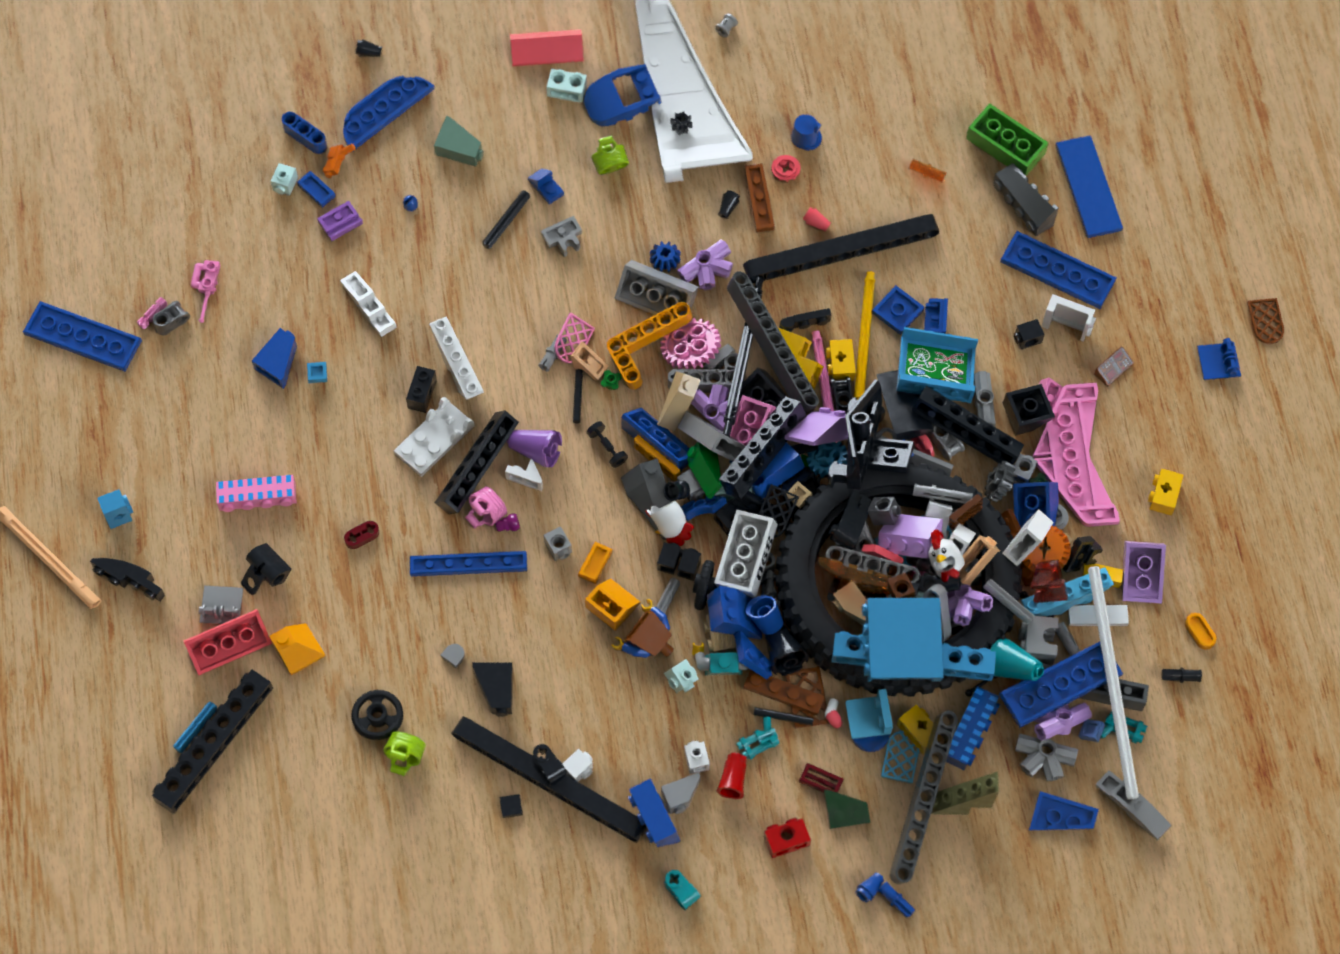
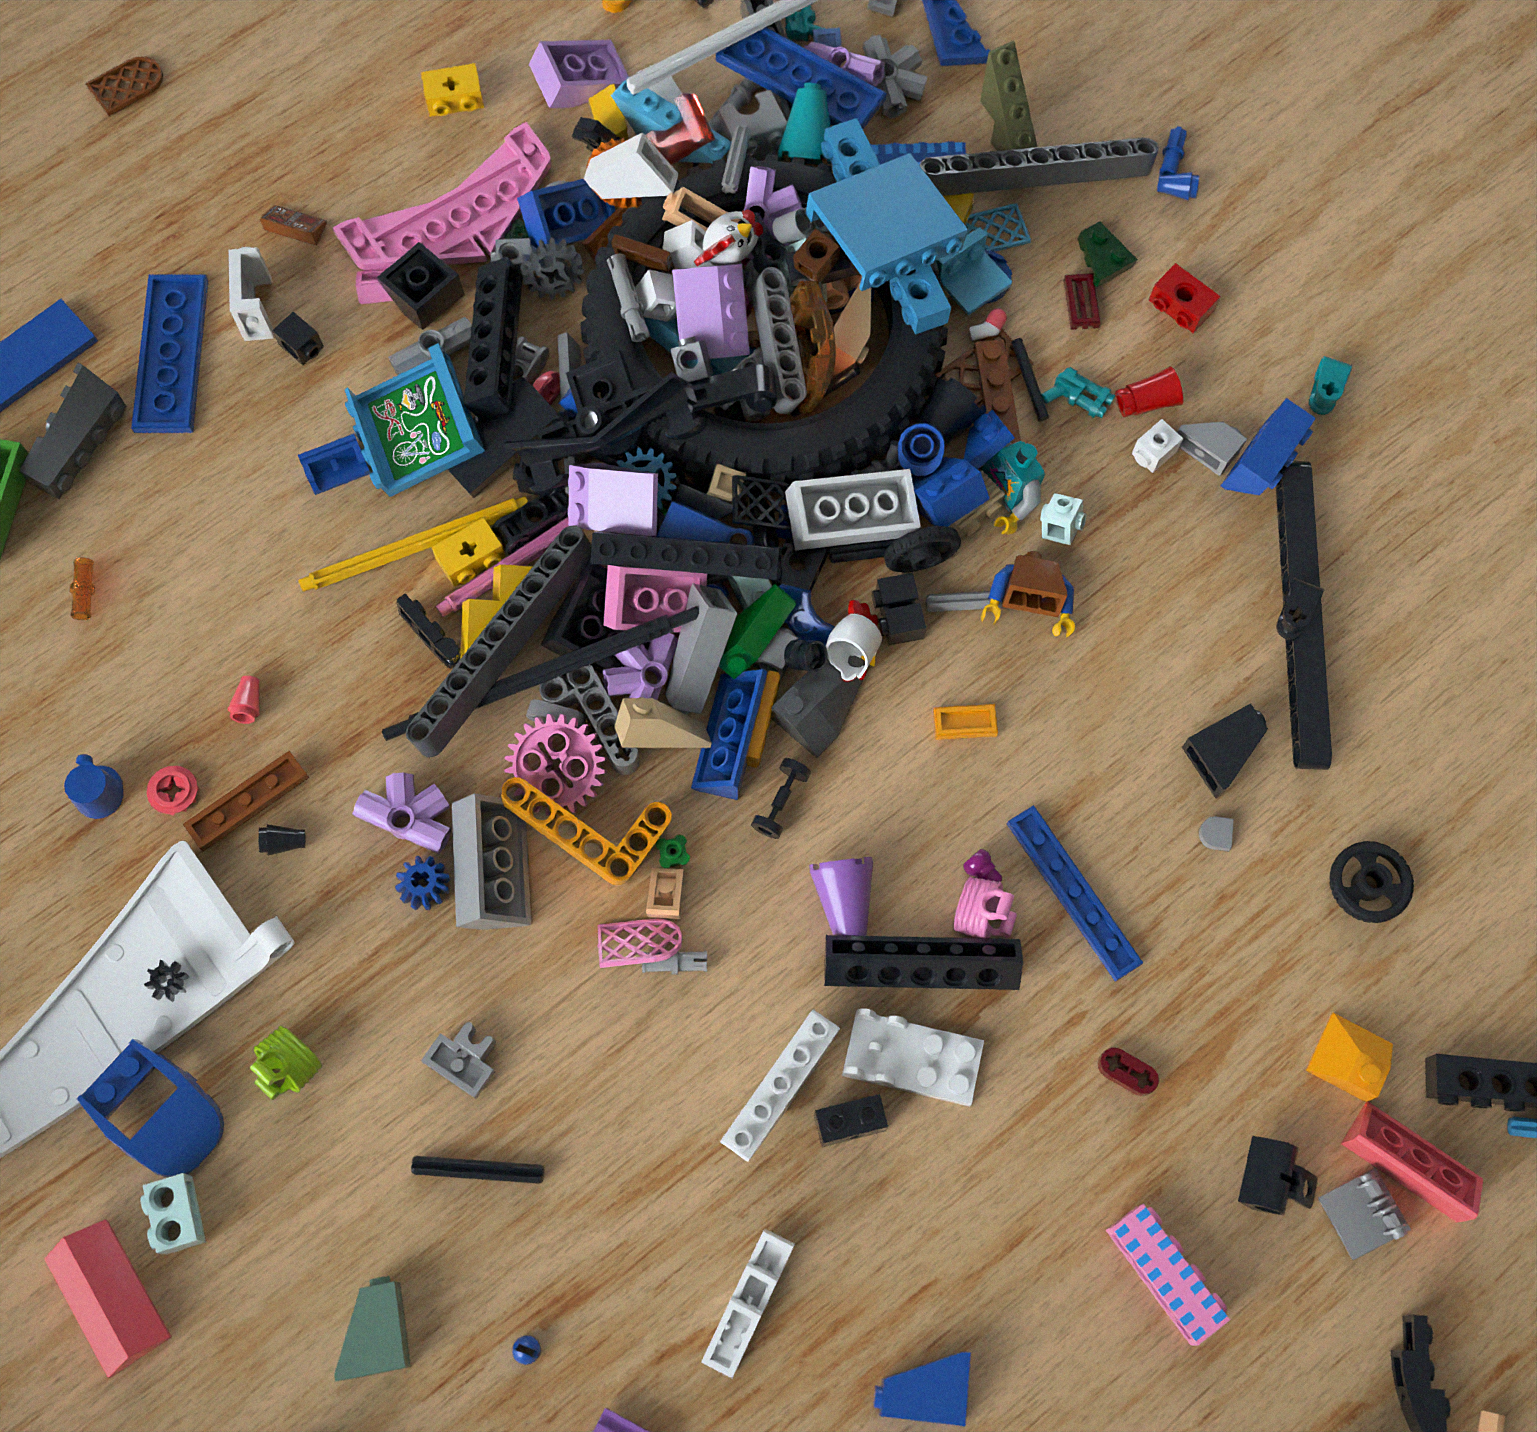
camera: 120 degrees left, 5 degrees up
(317, 372) = (918, 1305): dark azure tile -> none
(404, 747) = (1390, 815): lime piece -> none
(511, 806) = (1366, 641): black tile -> none
(529, 478) = (896, 877): white slope -> none
(545, 185) = (380, 1145): blue slope -> none
(558, 536) = (970, 793): light grey brick -> none
(577, 396) = (725, 886): black bar -> none
(579, 765) = (1262, 584): white brick -> none
(611, 603) = (1015, 660): light orange slope -> none
(842, 248) = (281, 643): black beam -> none
(875, 550) = (758, 336): coral tile -> none
(898, 309) = (343, 523): blue tile -> none
(1219, 360) = (219, 109): blue hinge -> none

